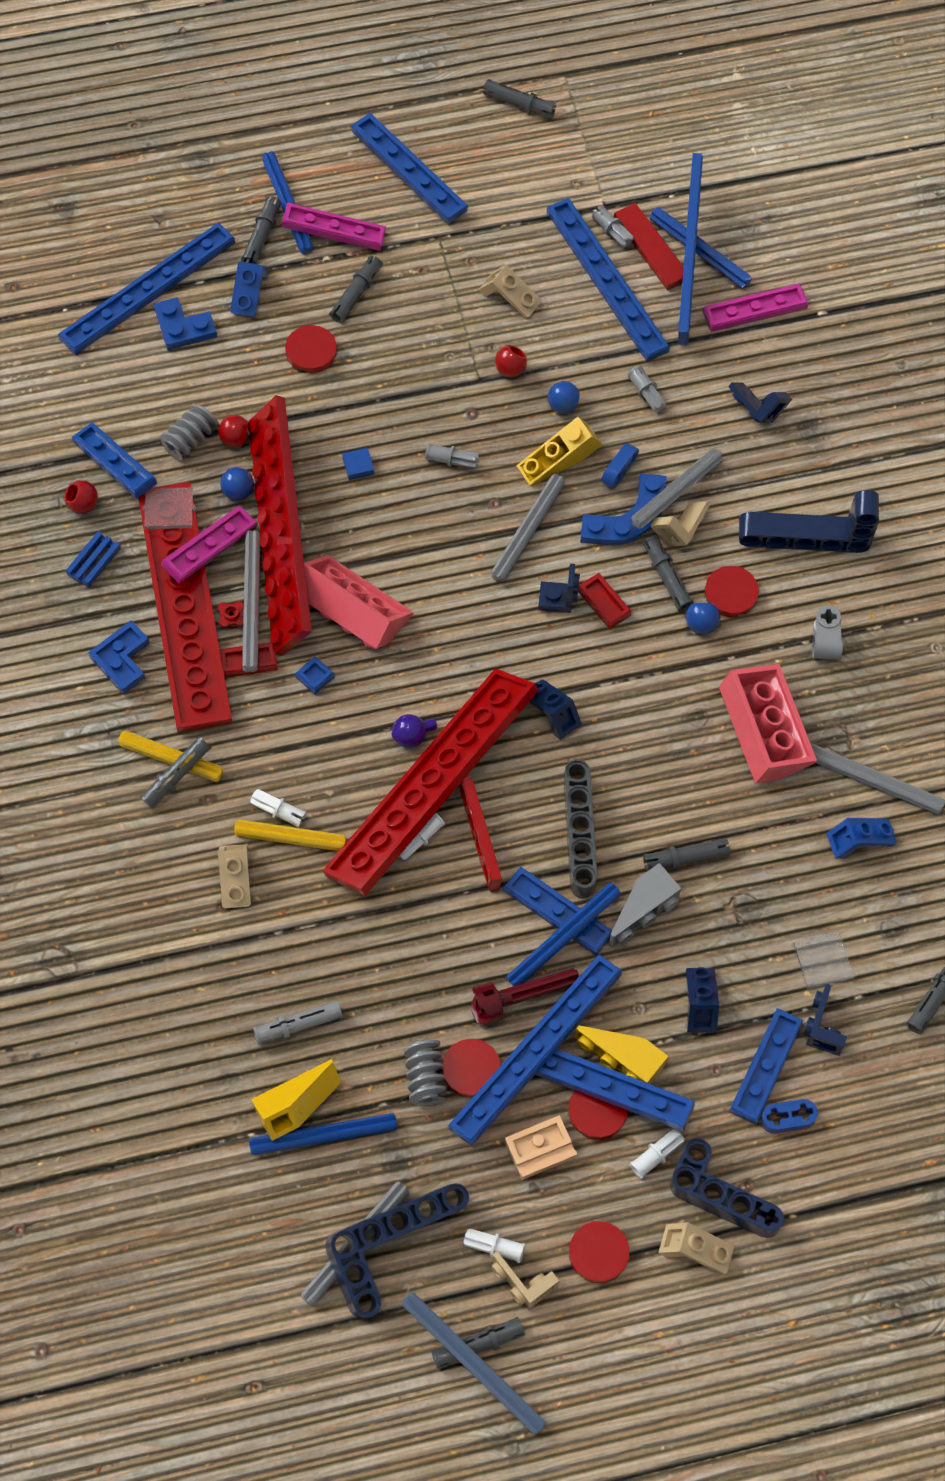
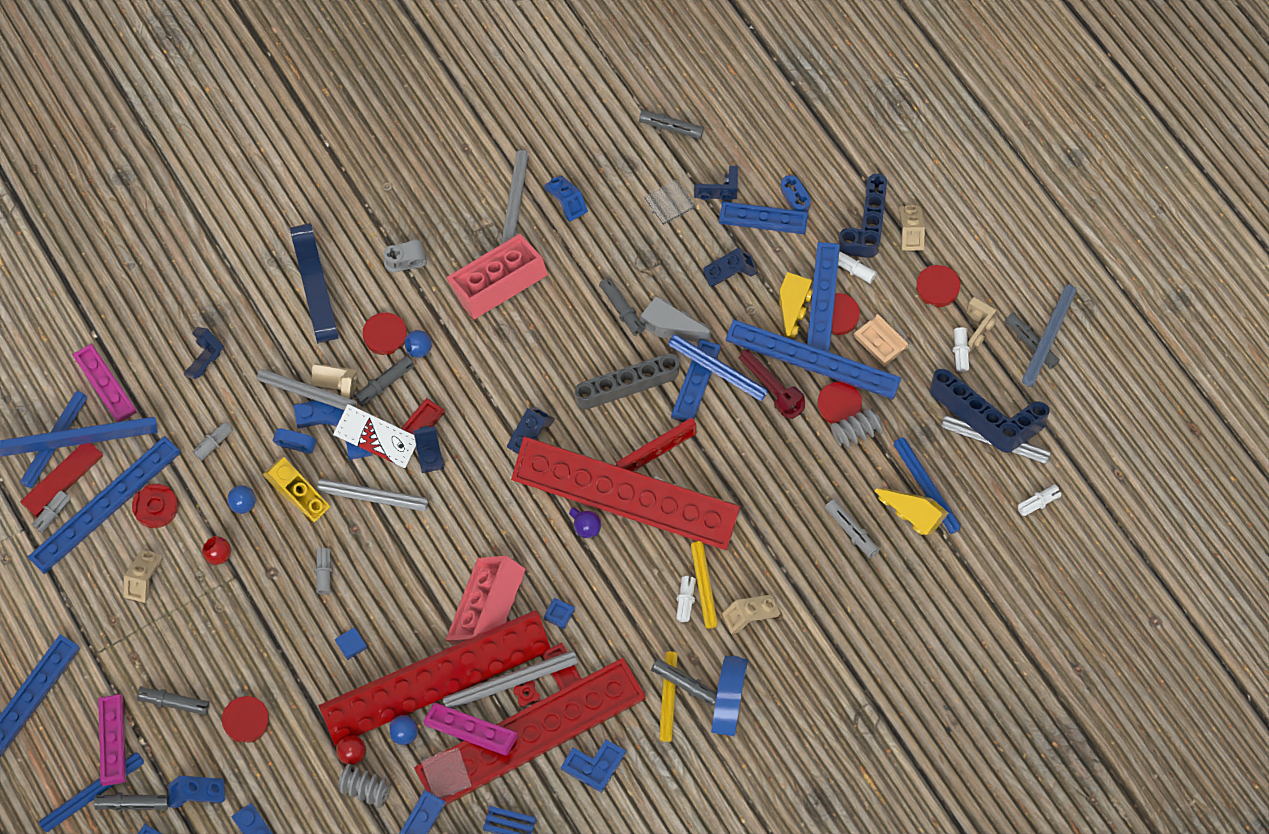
camera: 105 degrees left, 0 degrees up
(131, 804) = (729, 695): none -> blue arch
(251, 1263) = (1039, 500): none -> white axle
(589, 323) = (155, 506): none -> red tile
(596, 540) = (375, 436): none -> white sticker

